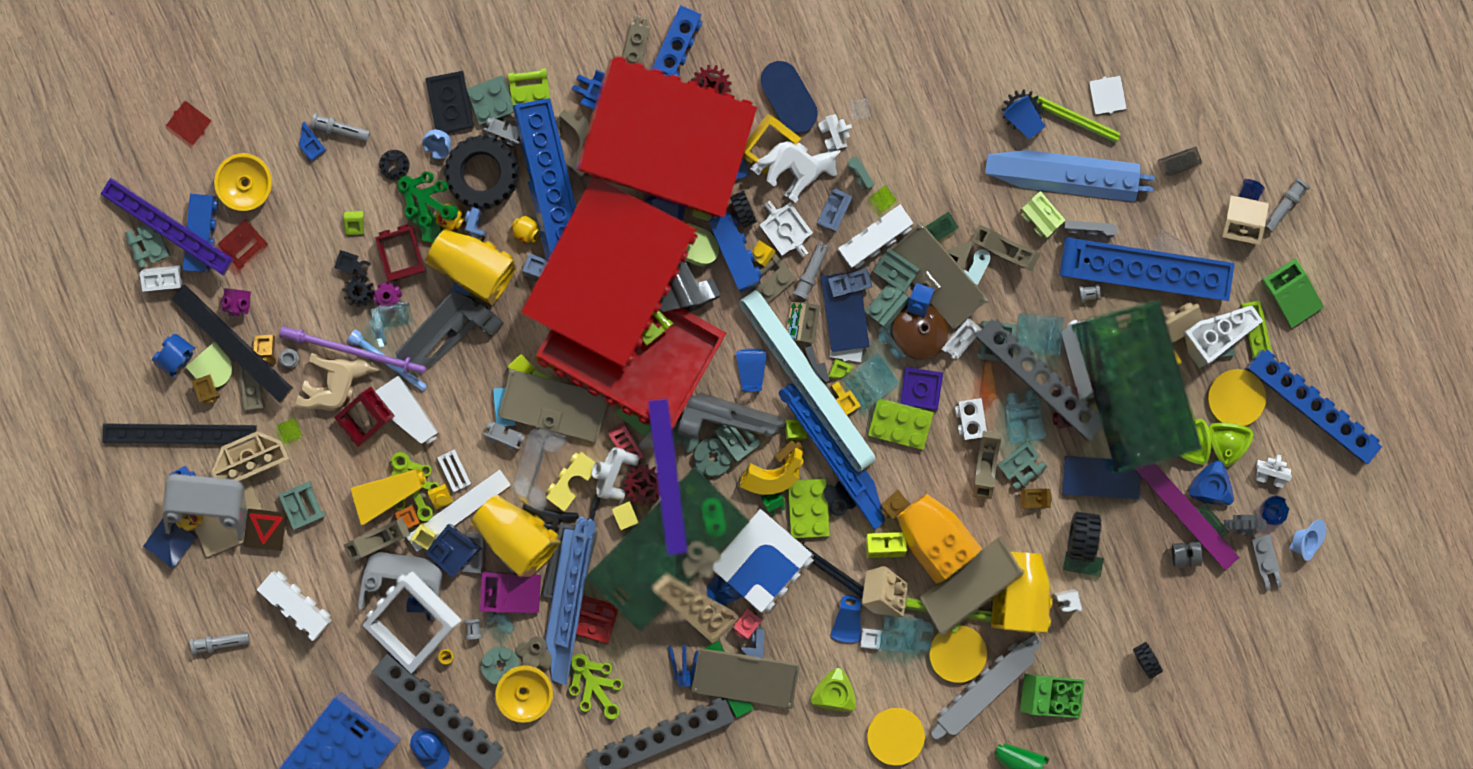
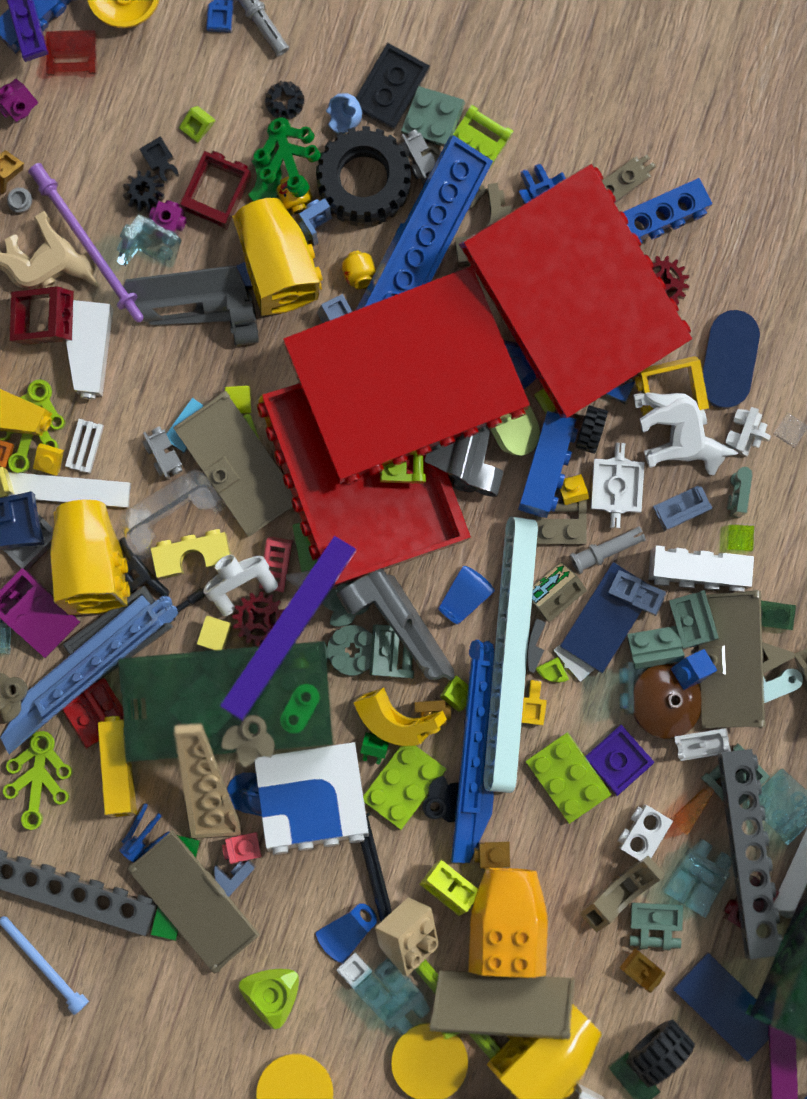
camera: 45 degrees right, 5 degrees down
(356, 339) = (101, 235): light blue piece -> none
(635, 640) = (116, 772): none -> yellow slope
(870, 381) = (574, 708): clear light blue bracket -> none

